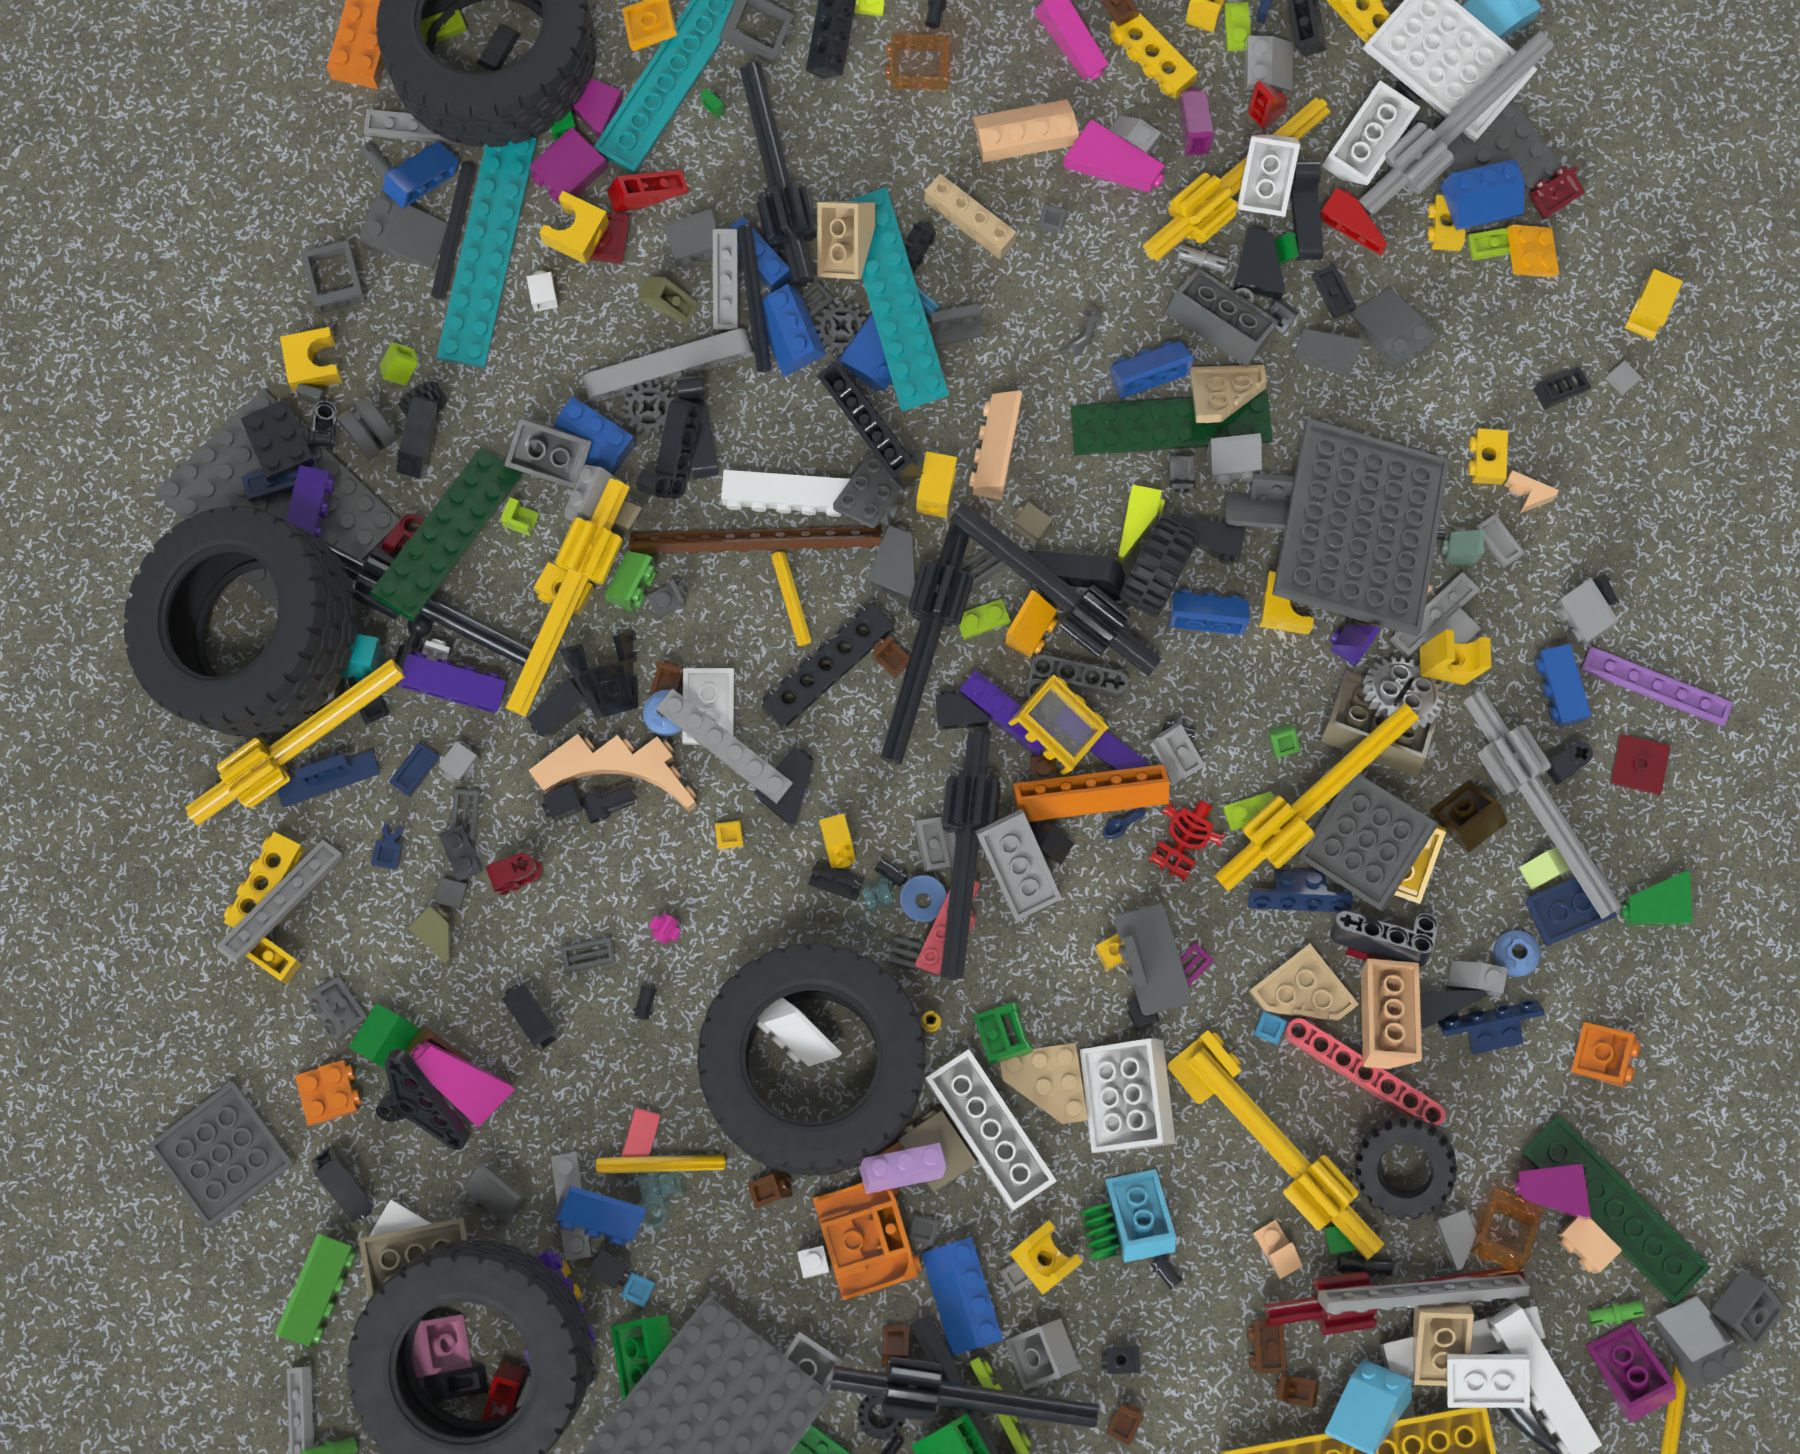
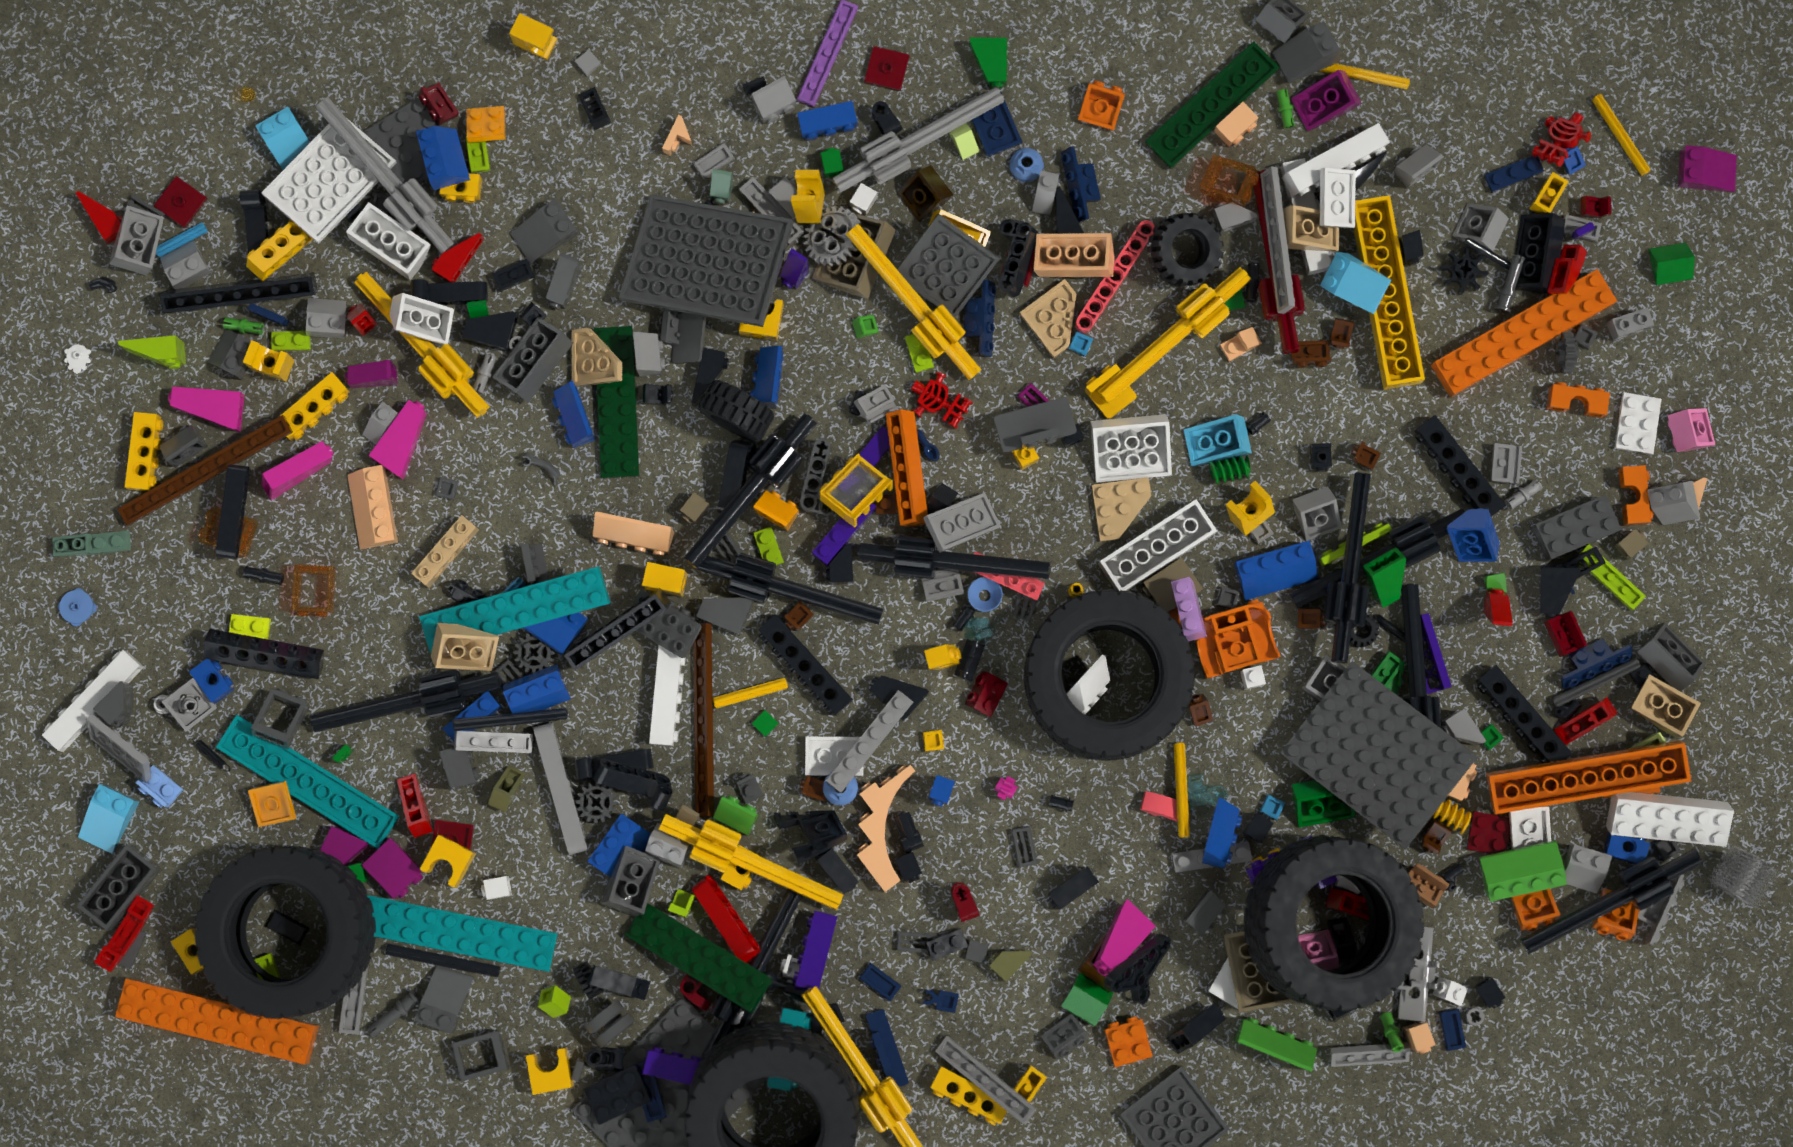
camera: 90 degrees left, 5 degrees up
(420, 174) = (398, 986): blue brick -> none
(458, 763) = (877, 947): light grey brick -> none
(496, 570) = (726, 919): none -> red beam
(660, 841) = (941, 790): none -> blue brick
(751, 618) = (765, 723): none -> green tile
(790, 902) = (986, 693): none -> dark red bracket
(994, 1035) = (1087, 543): green plate -> none
(1140, 515) = (688, 426): neon yellow slope -> none
(1455, 733) = (863, 199): none -> white brick
(1492, 442) = (640, 158): yellow brick -> none
(1505, 691) = (831, 162): none -> green brick
(1556, 1189) = (1200, 144): magenta slope -> none

